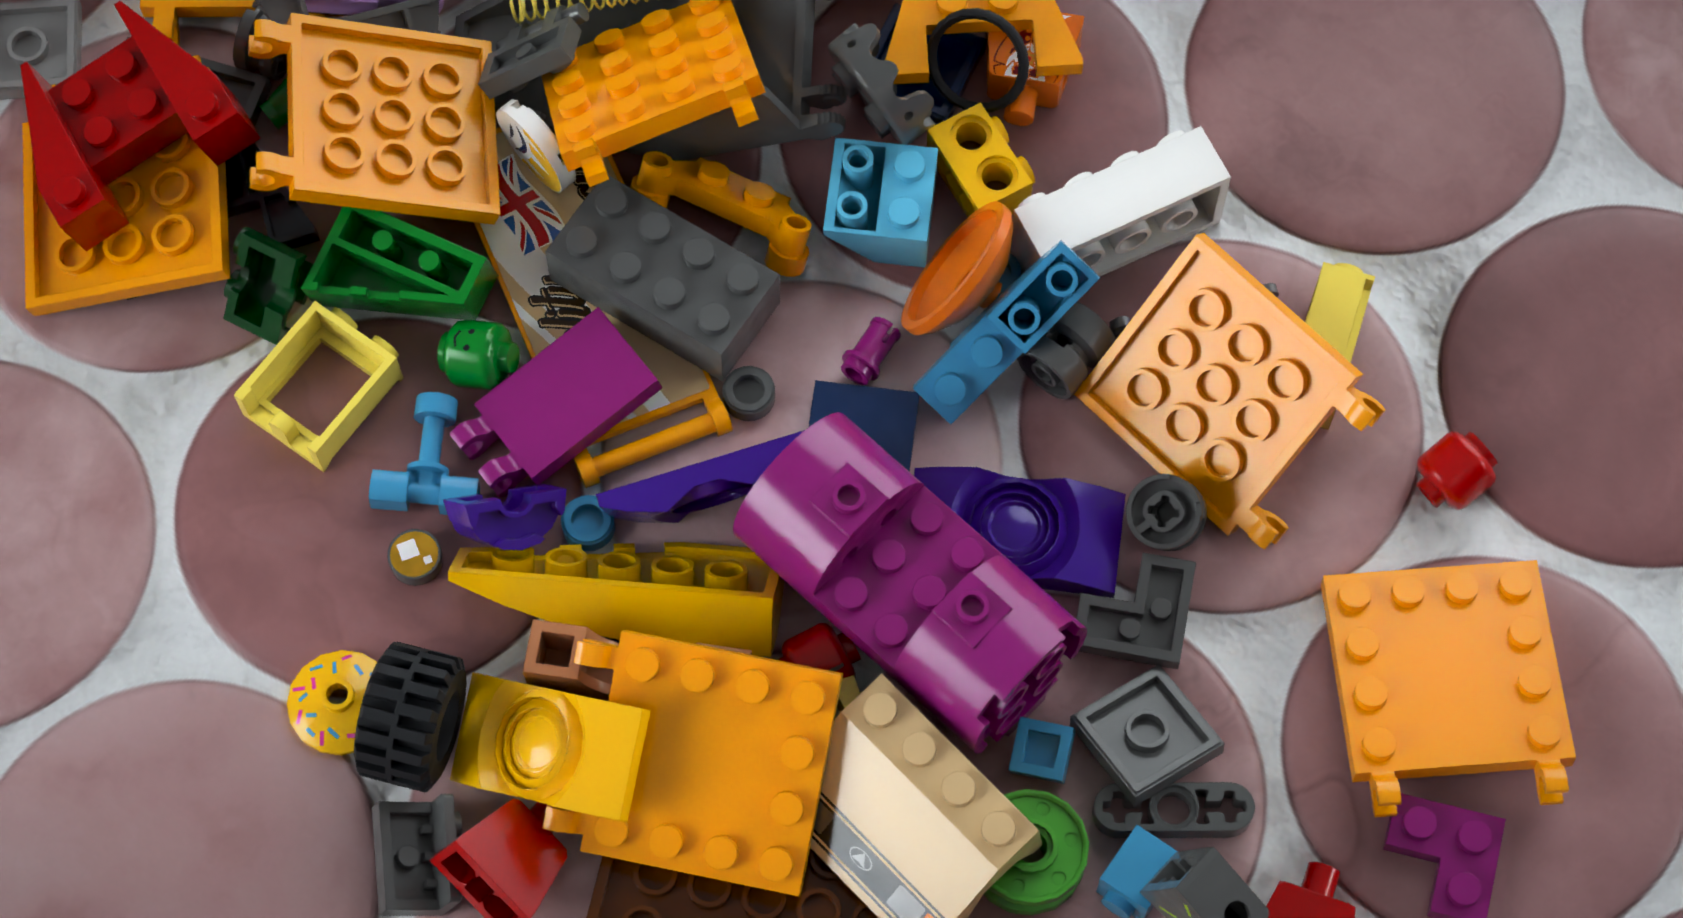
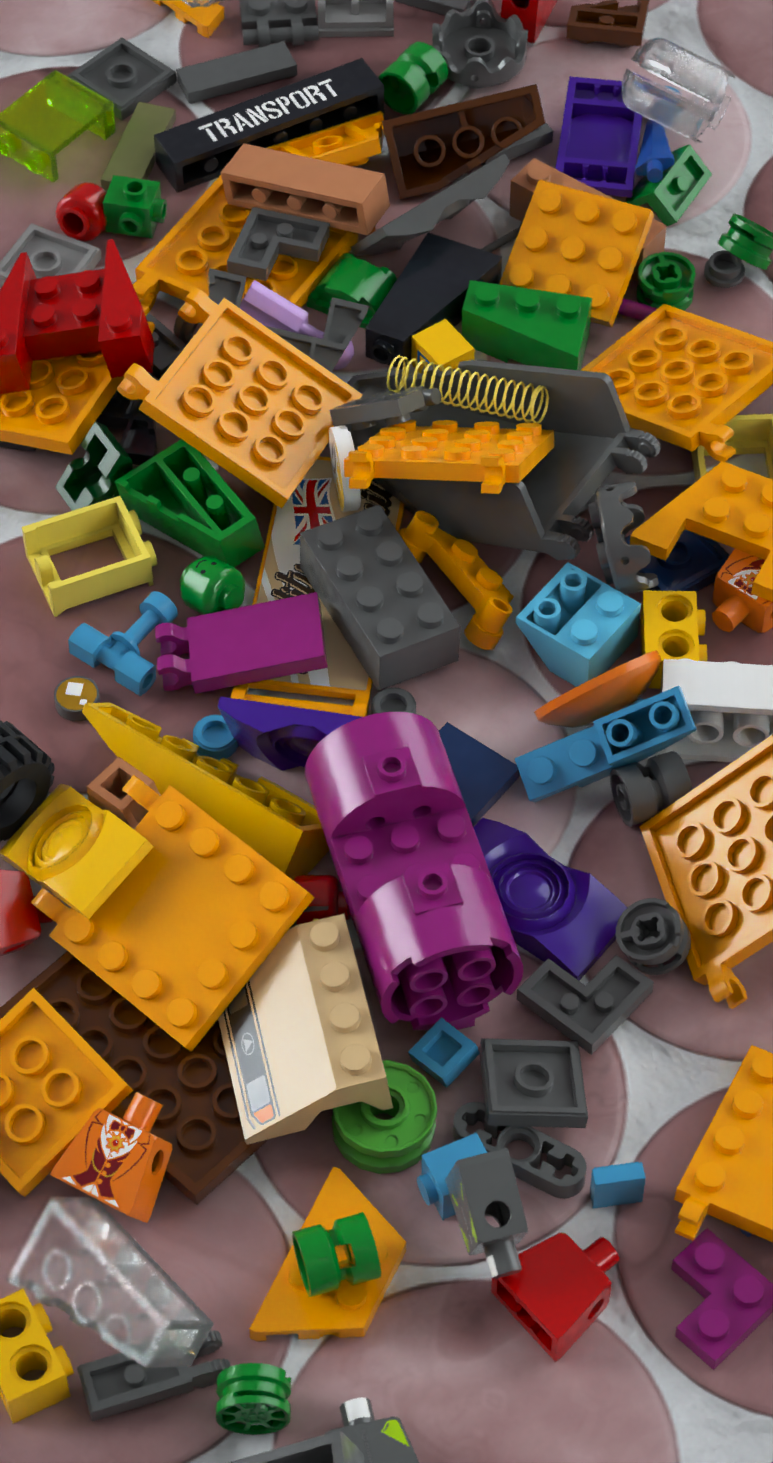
camera: 30 degrees right, 15 degrees down
(508, 525) = (148, 700): dark purple cylinder -> none
(864, 360) = (493, 726): magenta pin -> none
(1005, 26) = (745, 565): black tyre -> none
(1290, 796) = (617, 1184): none -> dark azure tile

